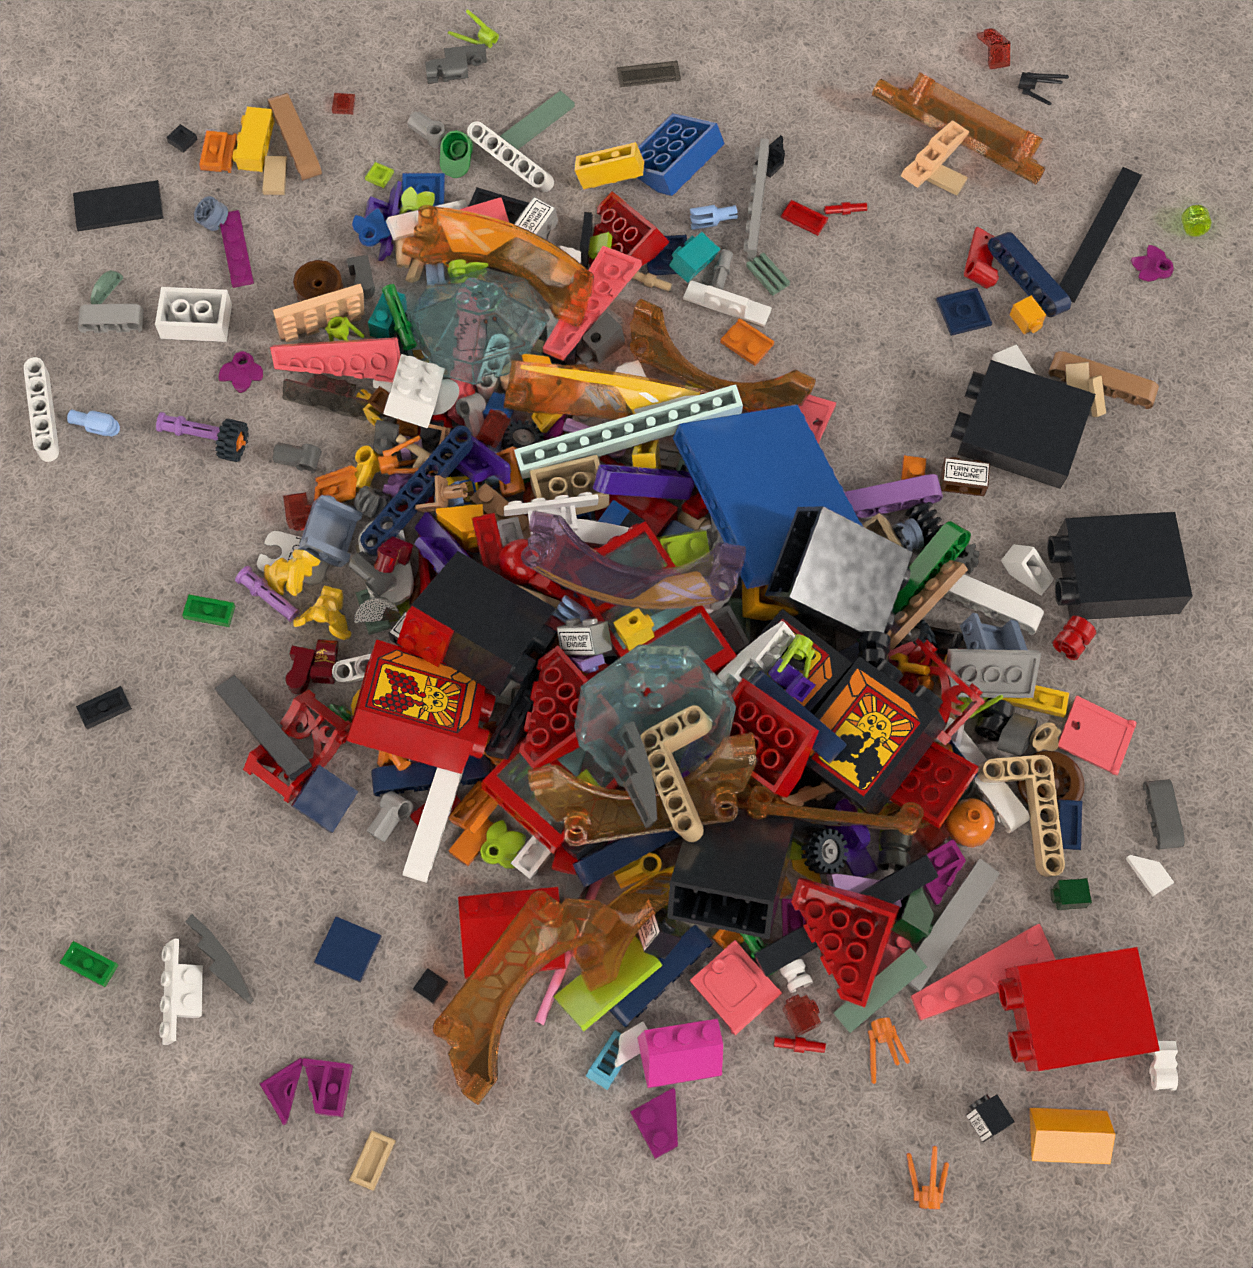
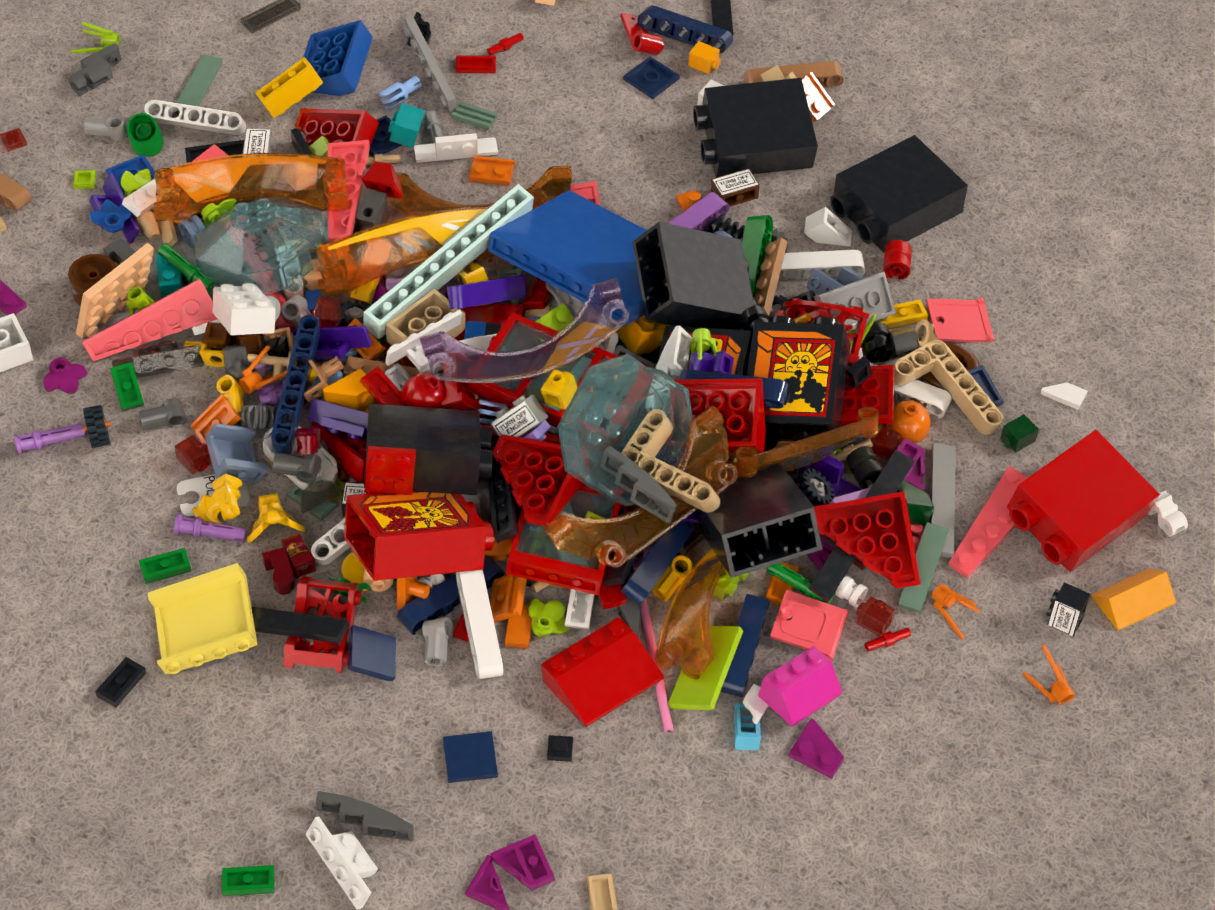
camera: 30 degrees left, 15 degrees down
(204, 687) = (203, 618): none -> light yellow panel
(283, 411) = (127, 386): none -> green plate
(480, 1008) = (626, 664): clear orange panel -> none
(630, 310) = (384, 179): none -> red slope
(659, 934) = (727, 607): black brick -> none
(937, 757) = (859, 372): none -> black plate
(1107, 412) = (817, 97): none -> plate
(1164, 813) = (1048, 348): dark grey beam -> none

